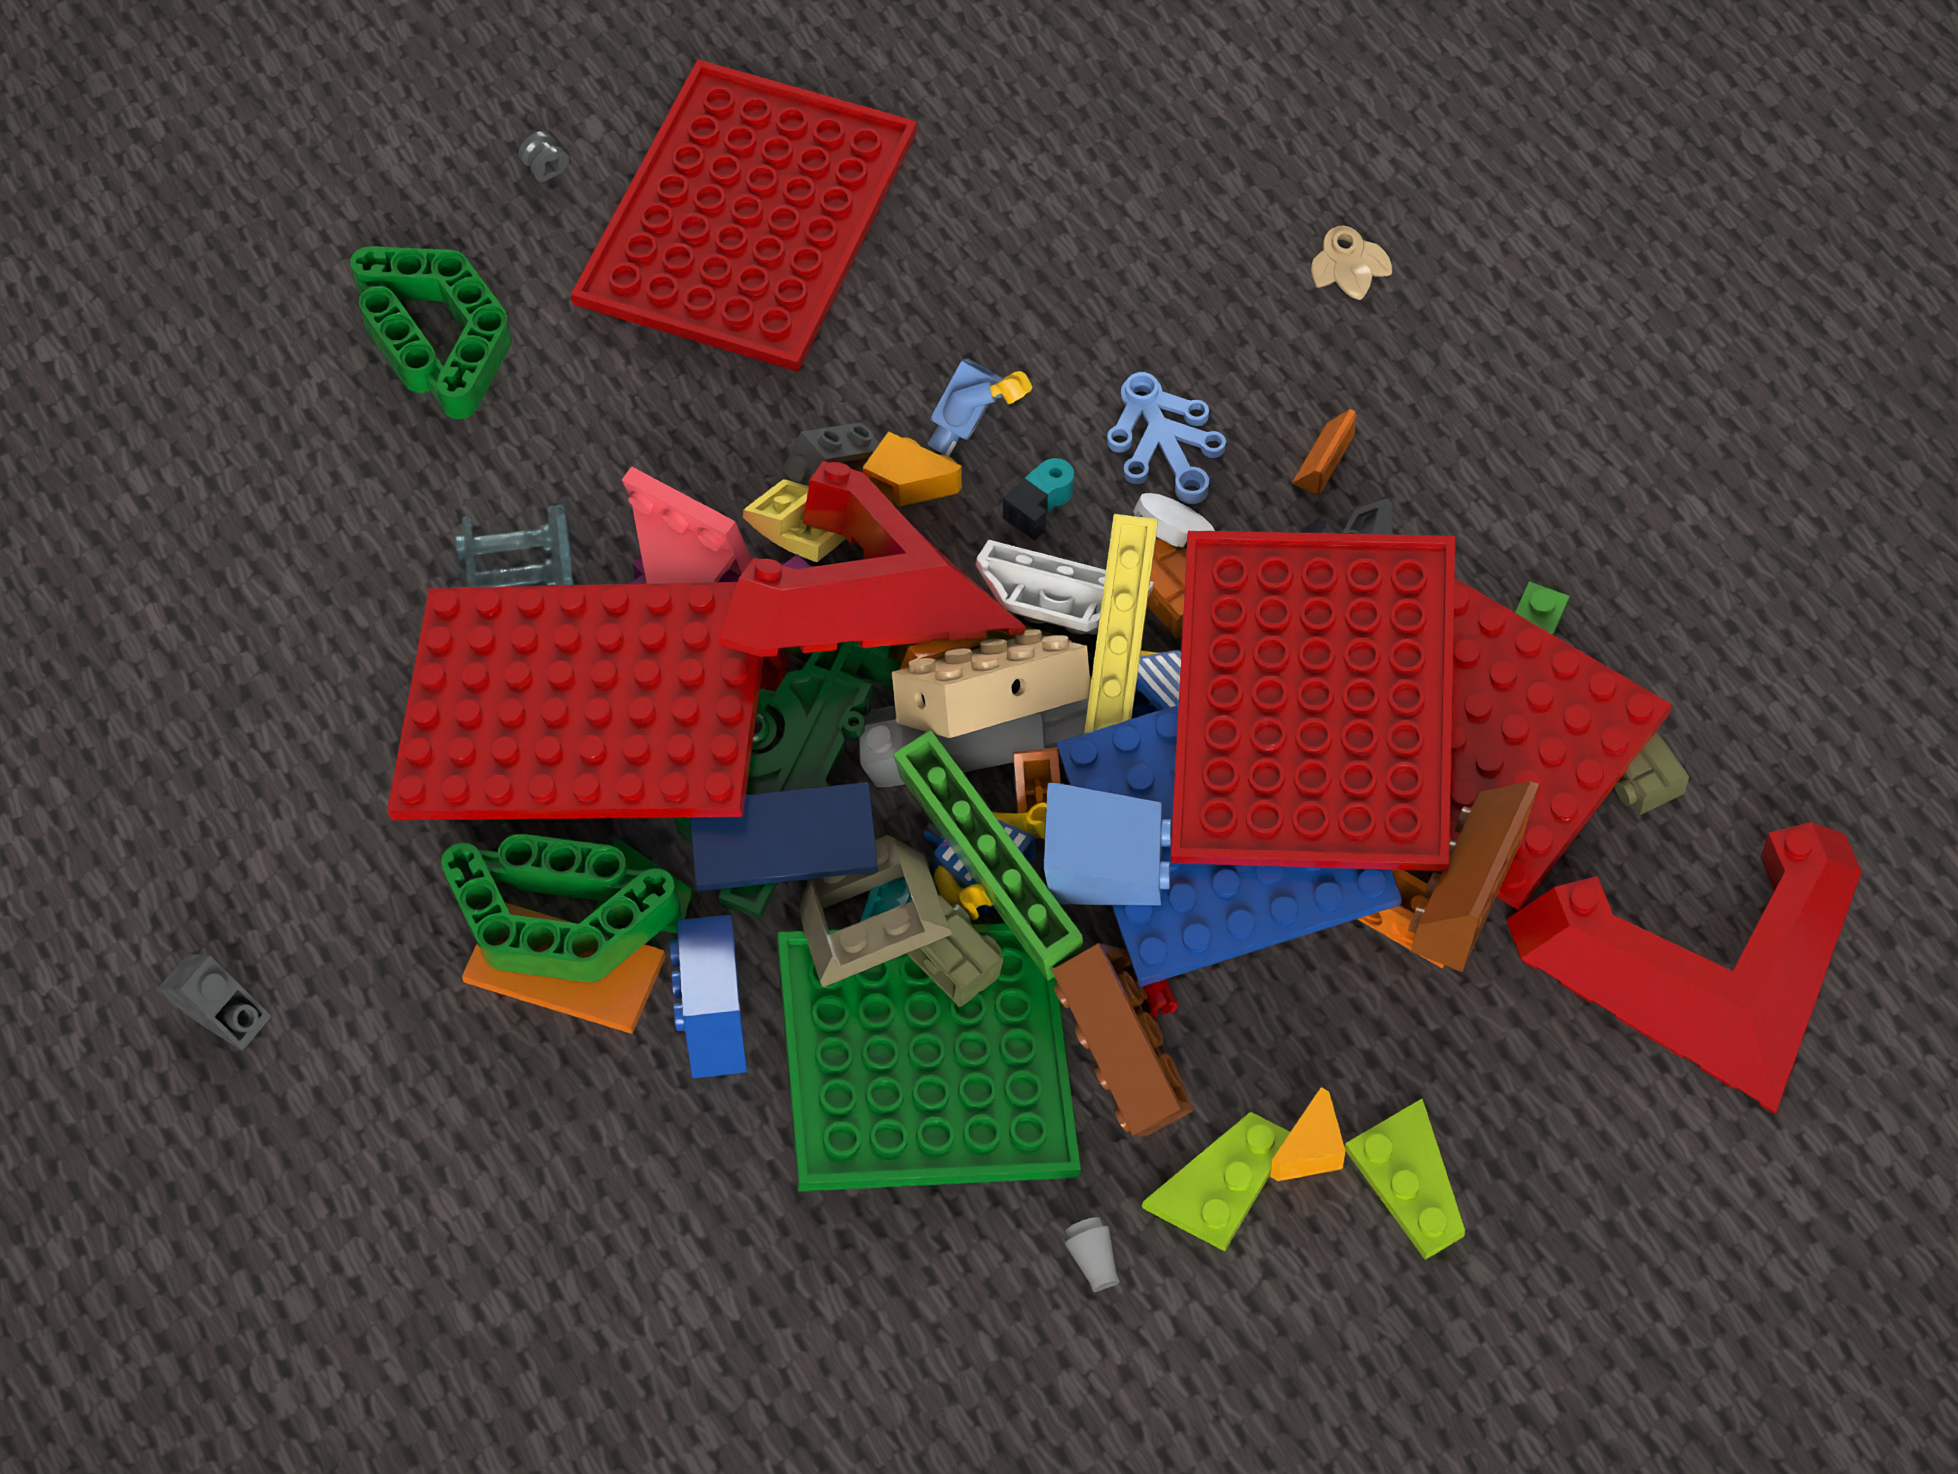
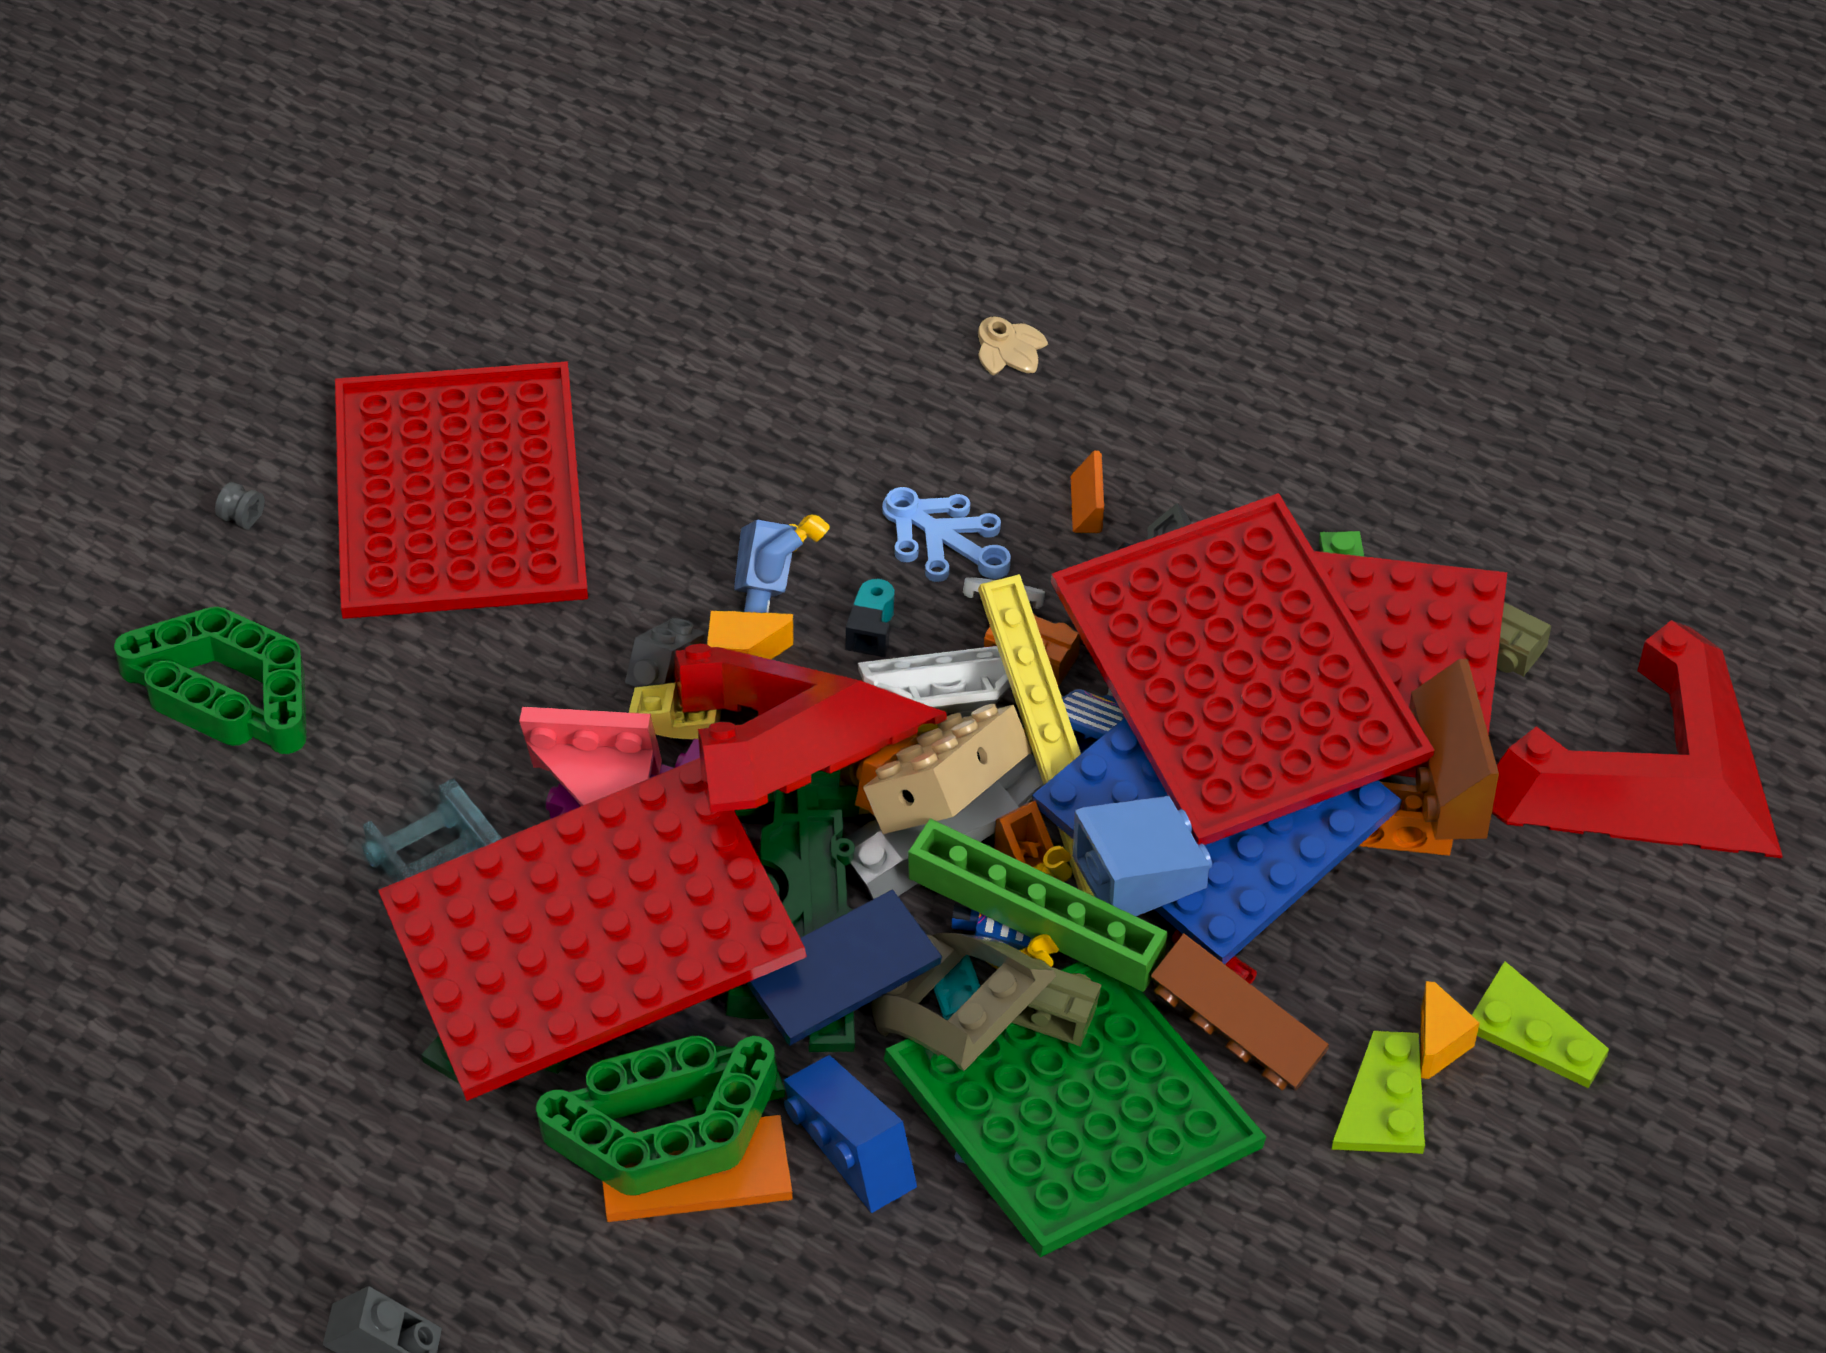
camera: 30 degrees left, 10 degrees down
(1093, 1252) = (1317, 1198): light grey cone -> none

